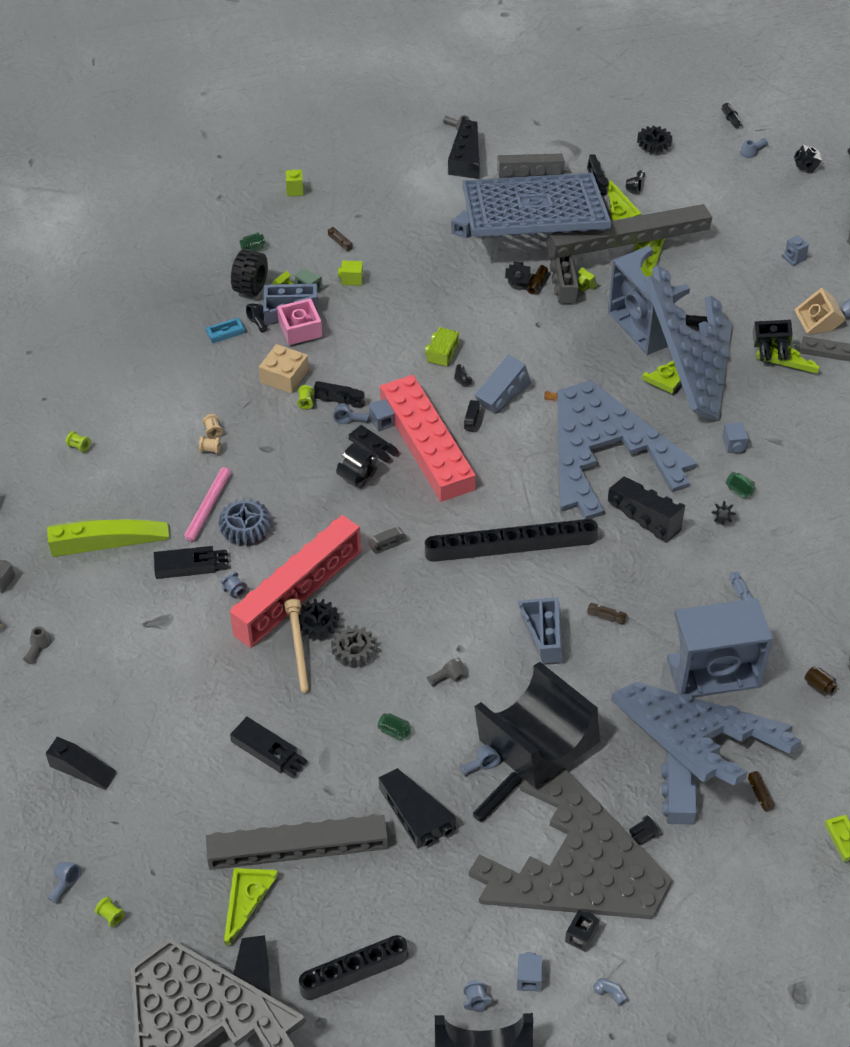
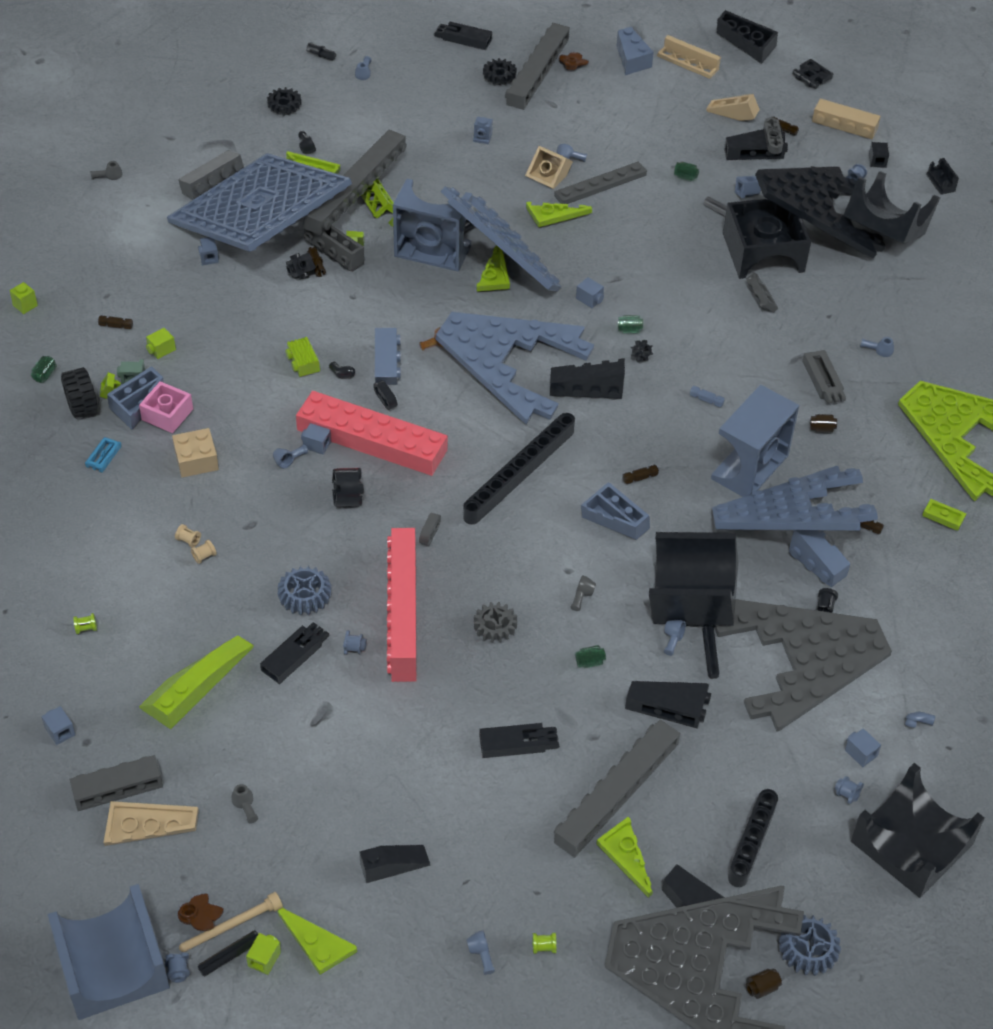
camera: 45 degrees left, 0 degrees up
(207, 504) = (255, 598): bright pink axle -> none
(254, 313) = (113, 425): black bar -> none
(293, 609) = (426, 625): tan piece -> none
(305, 397) = (242, 467): lime bush -> none
(327, 619) = (446, 622): black gear -> none
(339, 394) = (263, 444): black hinge -> none
(373, 442) = (324, 465): black hinge -> none
(464, 155) = (144, 191): black wedge -> none
(575, 933) = (863, 694): black brick -> none
(594, 167) = (261, 147): black hinge -> none
(771, 334) = (542, 199): black brick -> none
(807, 158) = (416, 55): black brick -> none

